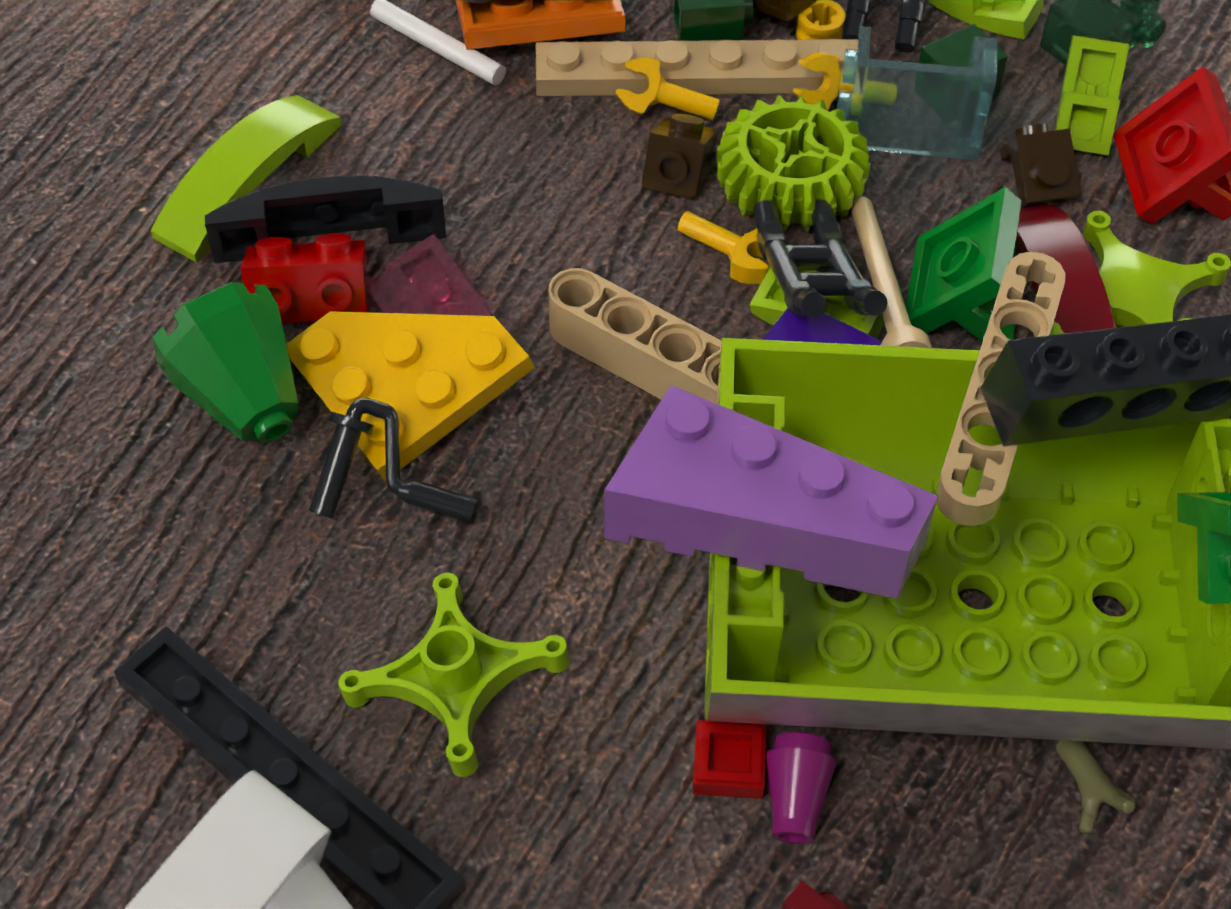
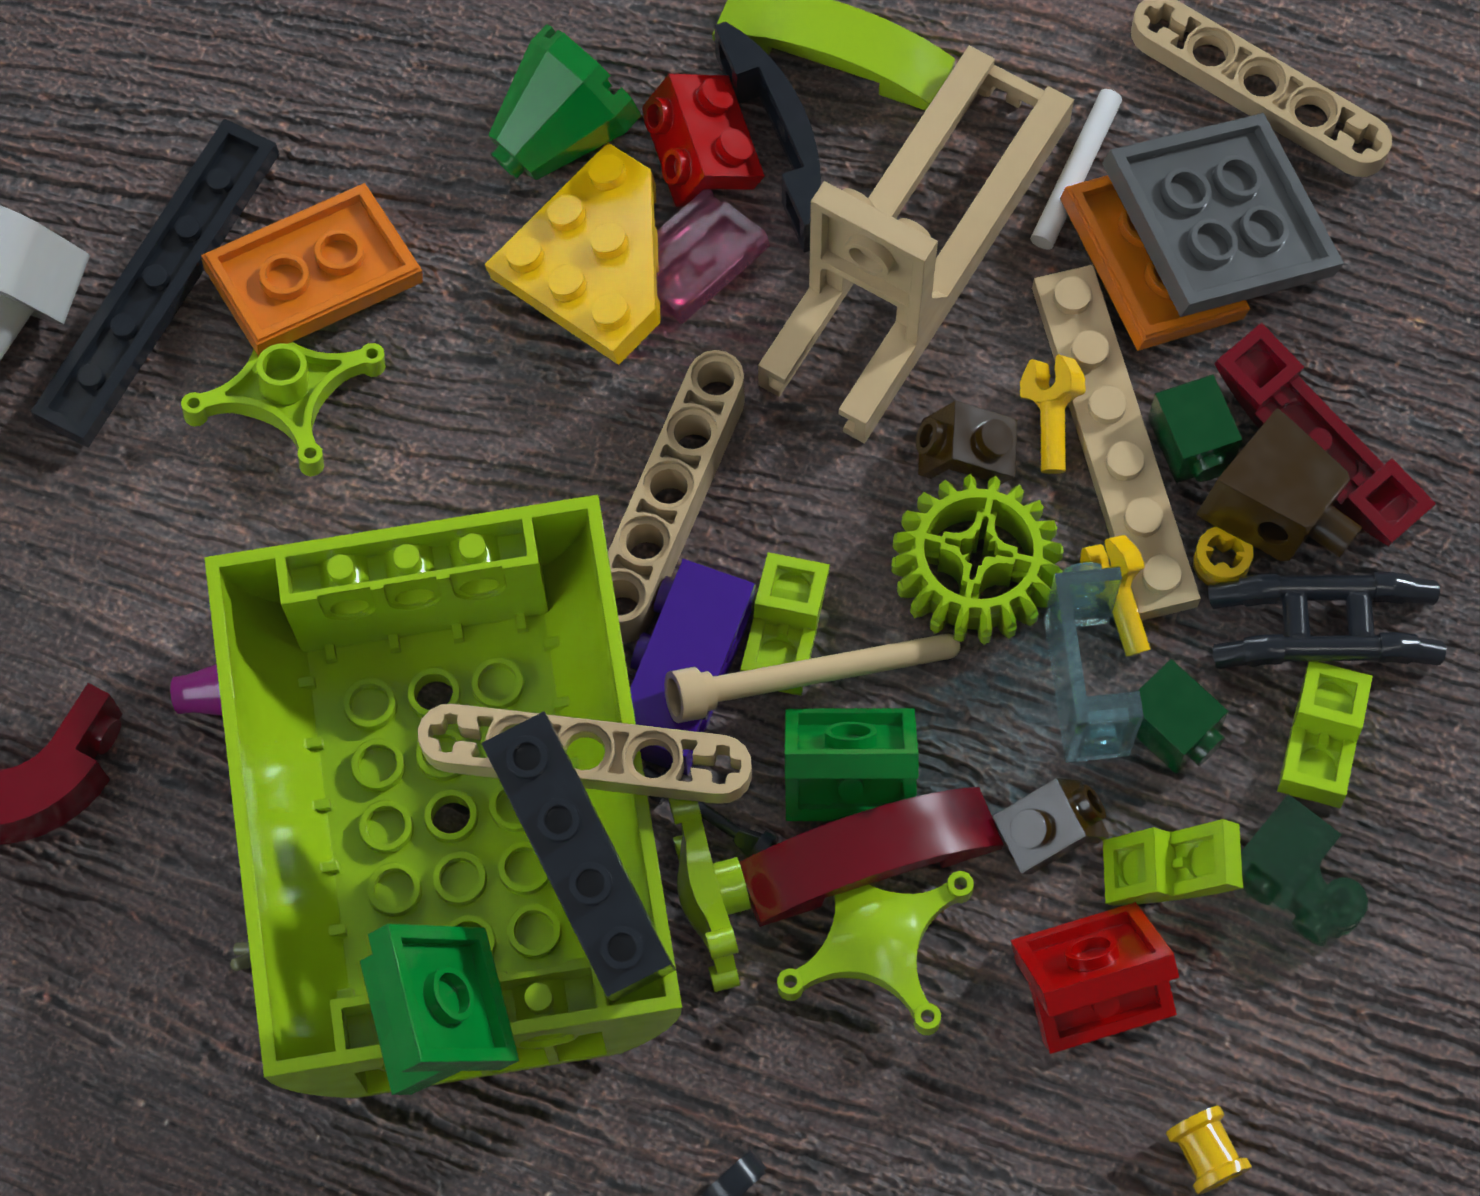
camera: 80 degrees right, 15 degrees up
(328, 624) = (312, 268): none -> orange tile
(410, 491) = (509, 227): black piece -> none
(522, 105) = (896, 259): none -> tan piece
(738, 248) = (855, 527): yellow bar -> none
(766, 498) = (384, 542): medium lavender wedge -> none
(806, 290) = (821, 567): black piece -> none

